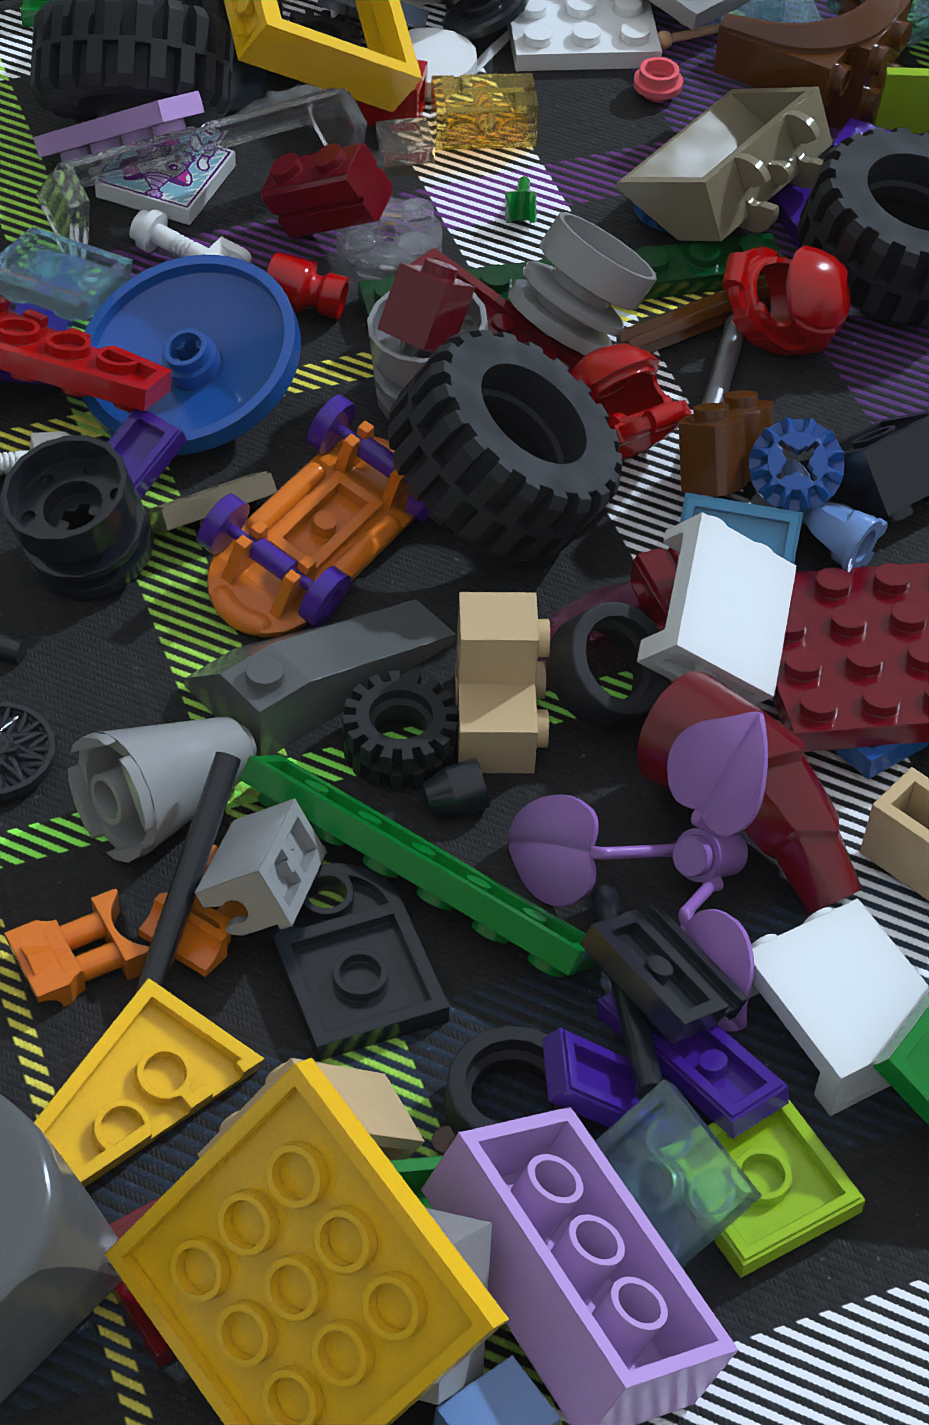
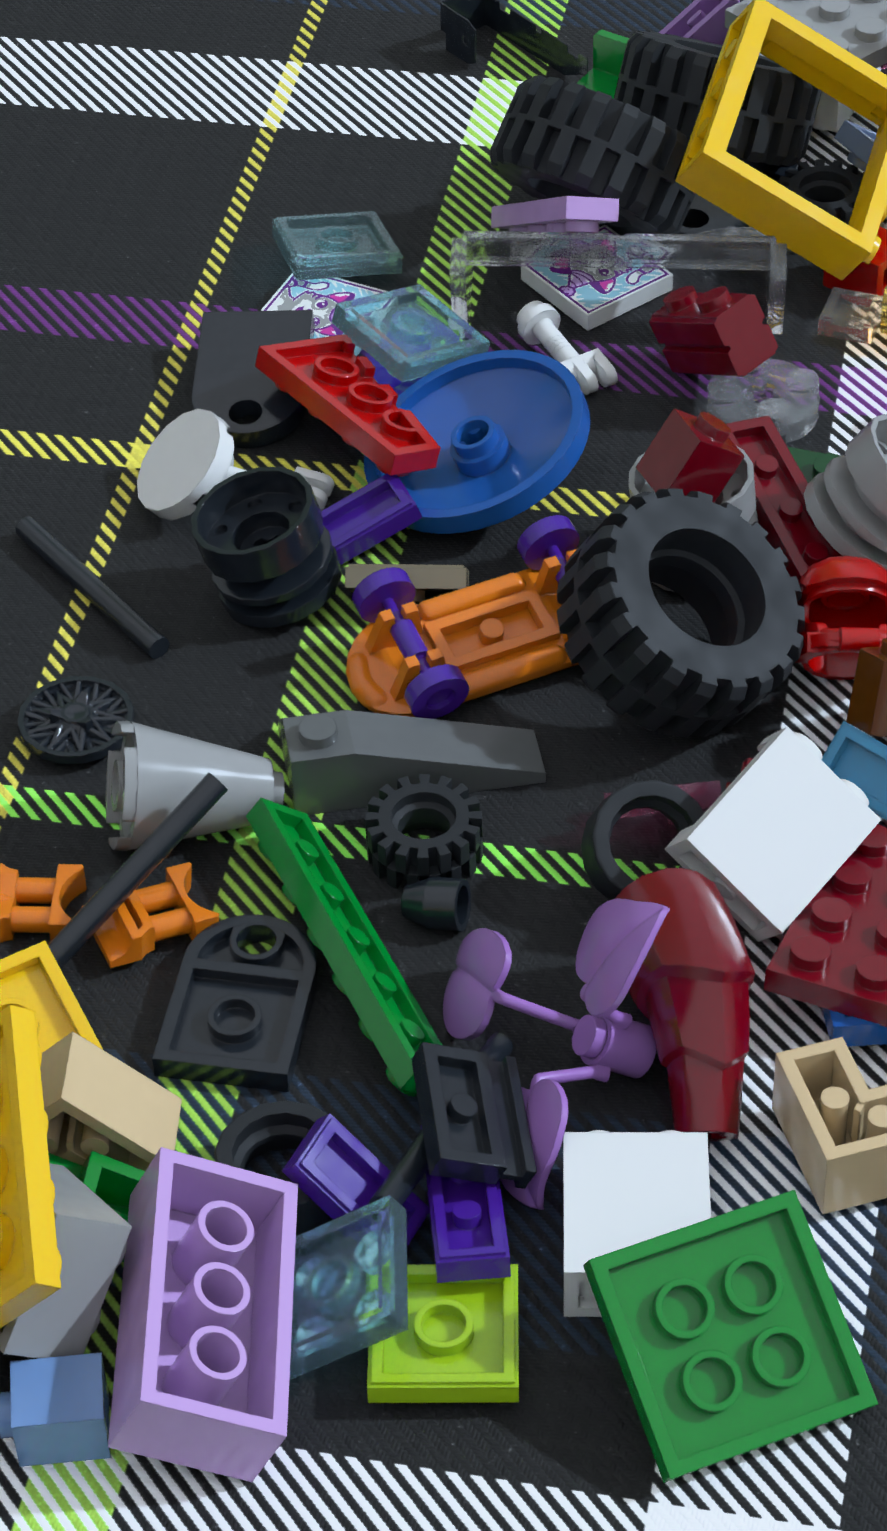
camera: 35 degrees right, 5 degrees down
(264, 865) = (208, 894): light grey hinge -> none
(308, 288) = (632, 410): red piece -> none
(501, 680) = (533, 821): tan brick -> none

